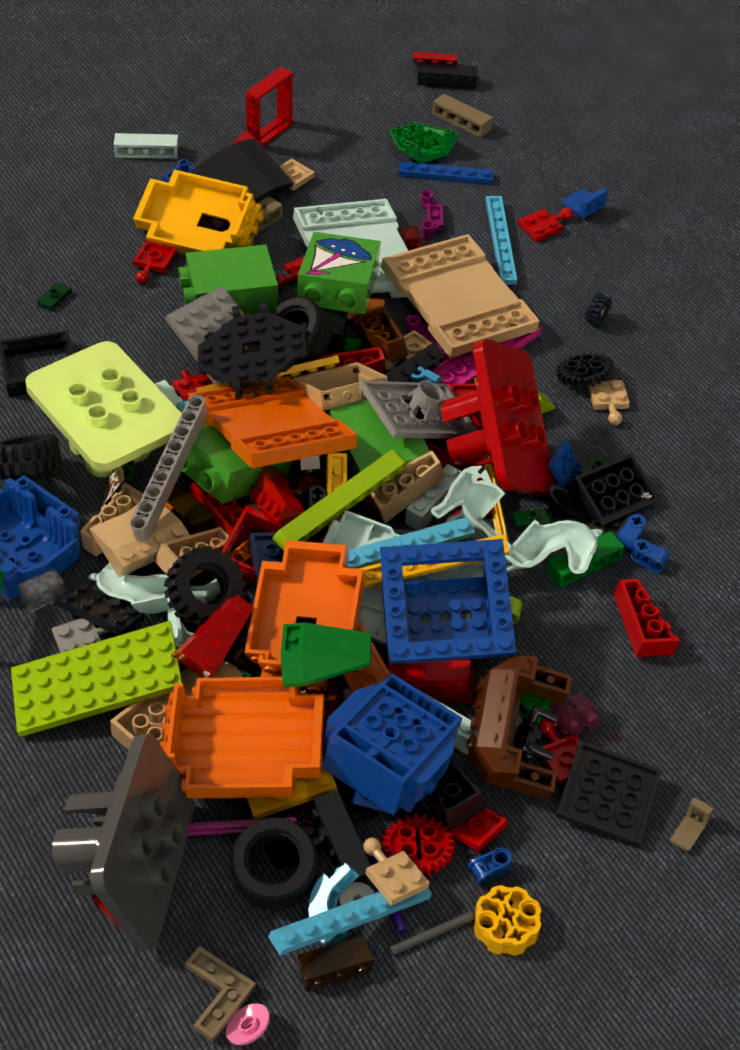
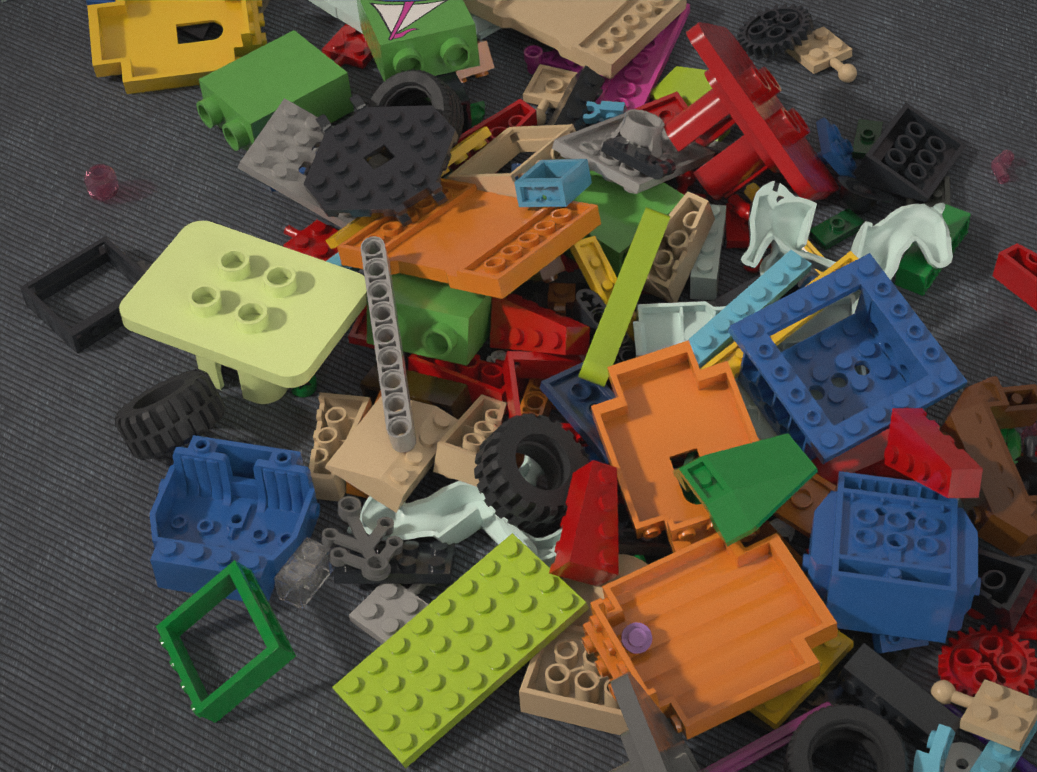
camera: 20 degrees left, 0 degrees up
(54, 296) = (49, 203): dark green plate -> none
(79, 604) = (373, 565): none -> dark grey plant
(90, 295) = (101, 182): none -> clear pink head
(116, 480) = (303, 402): shield -> none
(153, 257) = (148, 105): red plate -> none
(196, 720) = (636, 638): none -> medium lavender plate
(343, 408) = (556, 179): none -> dark azure window
(381, 331) = (507, 79): reddish brown wedge -> none
(411, 415) = (638, 158): none -> black plate
(455, 688) = (929, 456): none -> red wedge
(631, 531) = (963, 192): blue piece -> none
(650, 557) = (1003, 214): blue piece -> none
(674, 523) = (1001, 164): none -> clear pink arm

